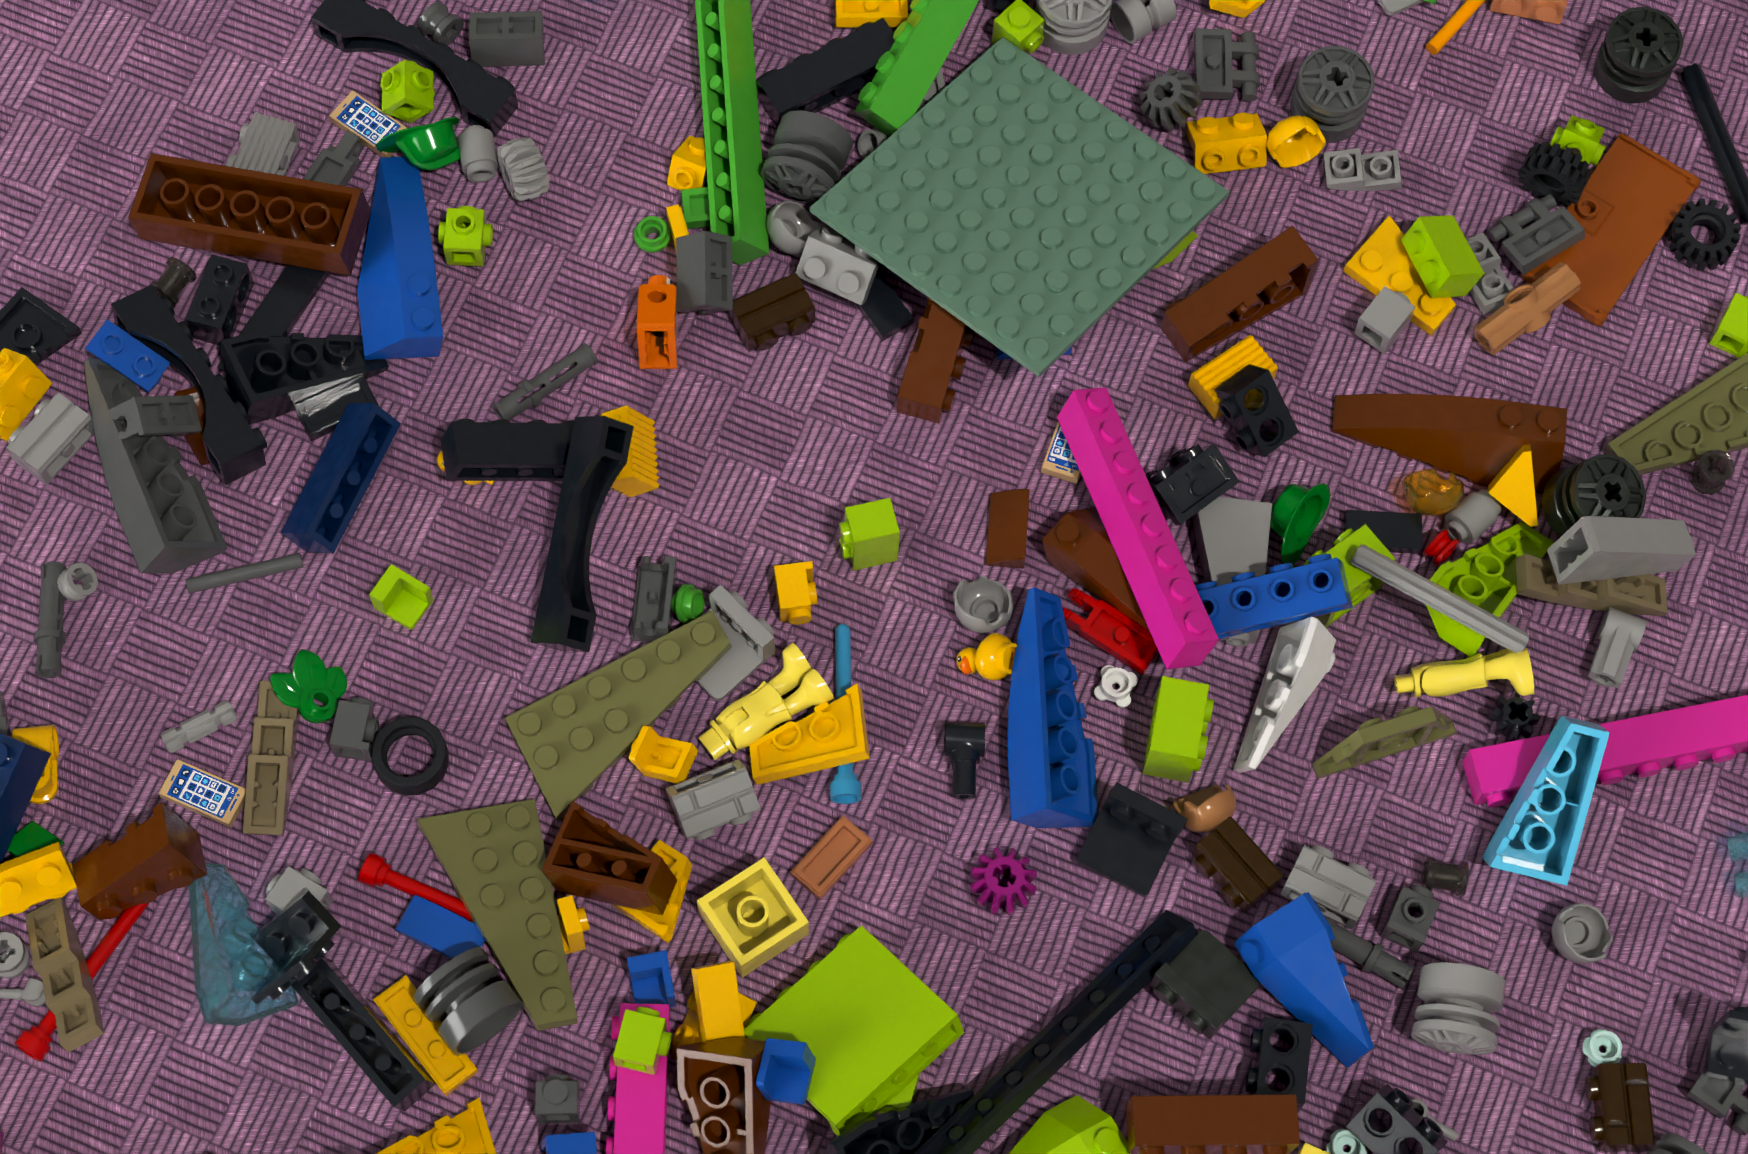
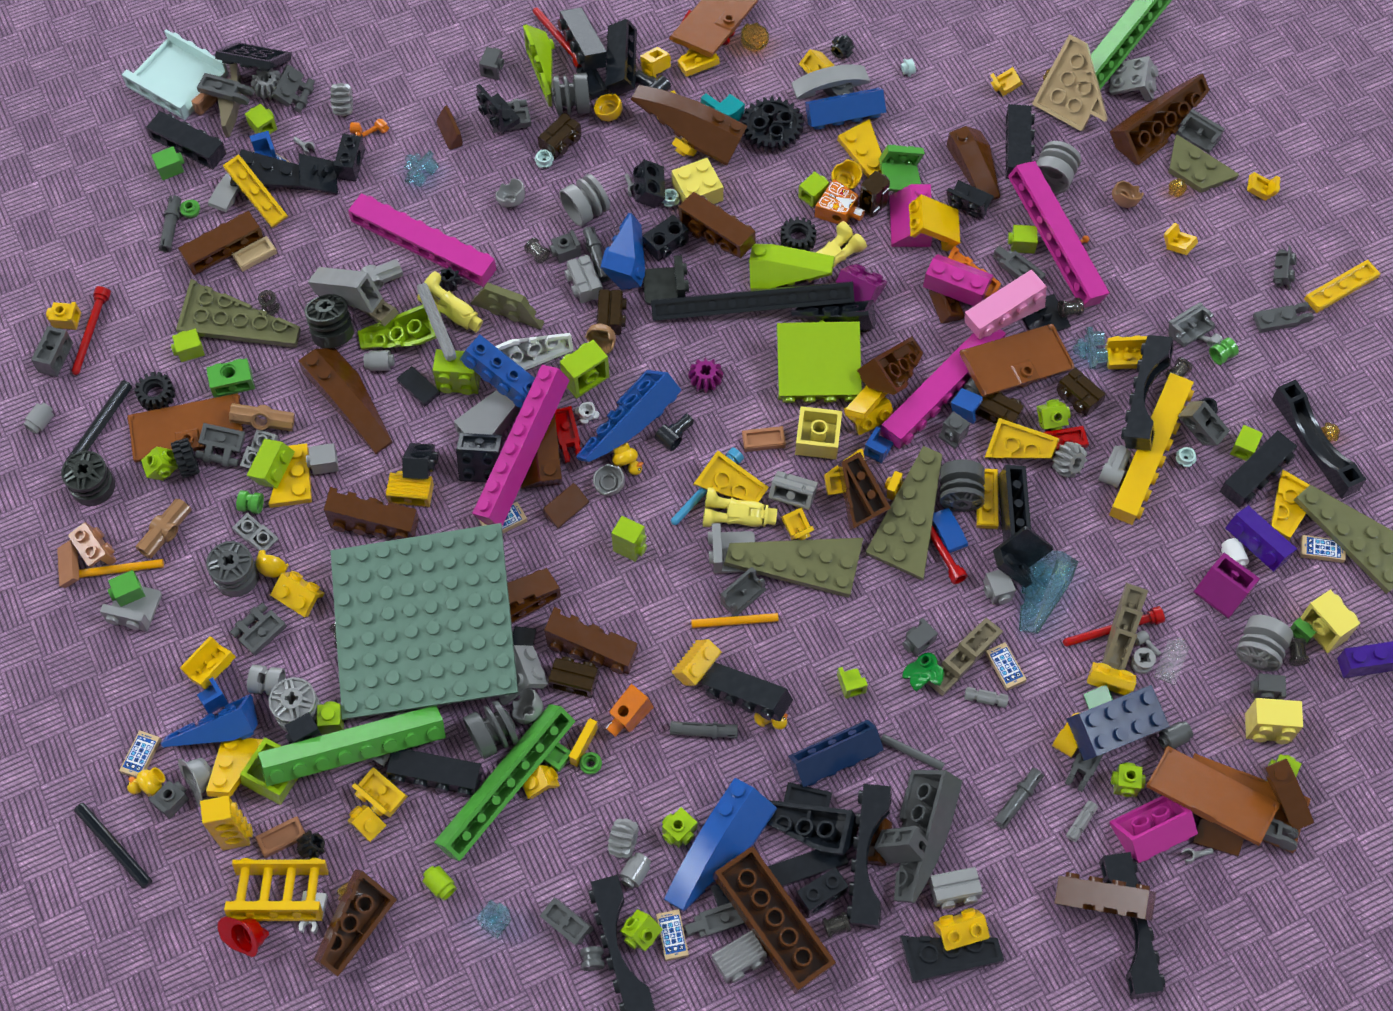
camera: 135 degrees left, 5 degrees down
(77, 592) = (990, 806): light grey bush -> none
(127, 356) = (890, 895): blue hinge -> none
(140, 866) = (1061, 642): reddish brown wedge -> none
(404, 727) = (903, 594): black tyre -> none
(426, 145) = (657, 891): green piece -> none
(565, 603) = (787, 610): black arch -> none
(642, 1040) = (906, 412): lime brick -> none
(645, 548) = (734, 620): none -> light orange bar
(688, 603) = (729, 578): bright green plate -> none
(704, 273) = (590, 709): dark grey hinge -> none
(785, 1071) = (860, 355): blue panel -> none
(792, 365) = (589, 643): none -> reddish brown wedge
(795, 592) = (680, 548): yellow brick -> none
(867, 141) = (451, 723): light grey hinge -> none
(1130, 839) = (642, 351): black bracket -> none
(1170, 99) = (306, 620): dark grey gear -> none
(1296, 517) = (445, 415): green piece -> none
(1412, 197) = (251, 502): none -> bright green wheel
(1431, 494) = (383, 378): clear yellow hair -> none
(1441, 547) = (404, 359): red bush -> none
(1478, 82) = (163, 528): none -> medium nougat piece
(1515, 486) = (350, 353): yellow slope -> none
(1551, 806) = (475, 230): medium azure wedge -> none
(1640, 311) = (240, 381): none -> bright green brick

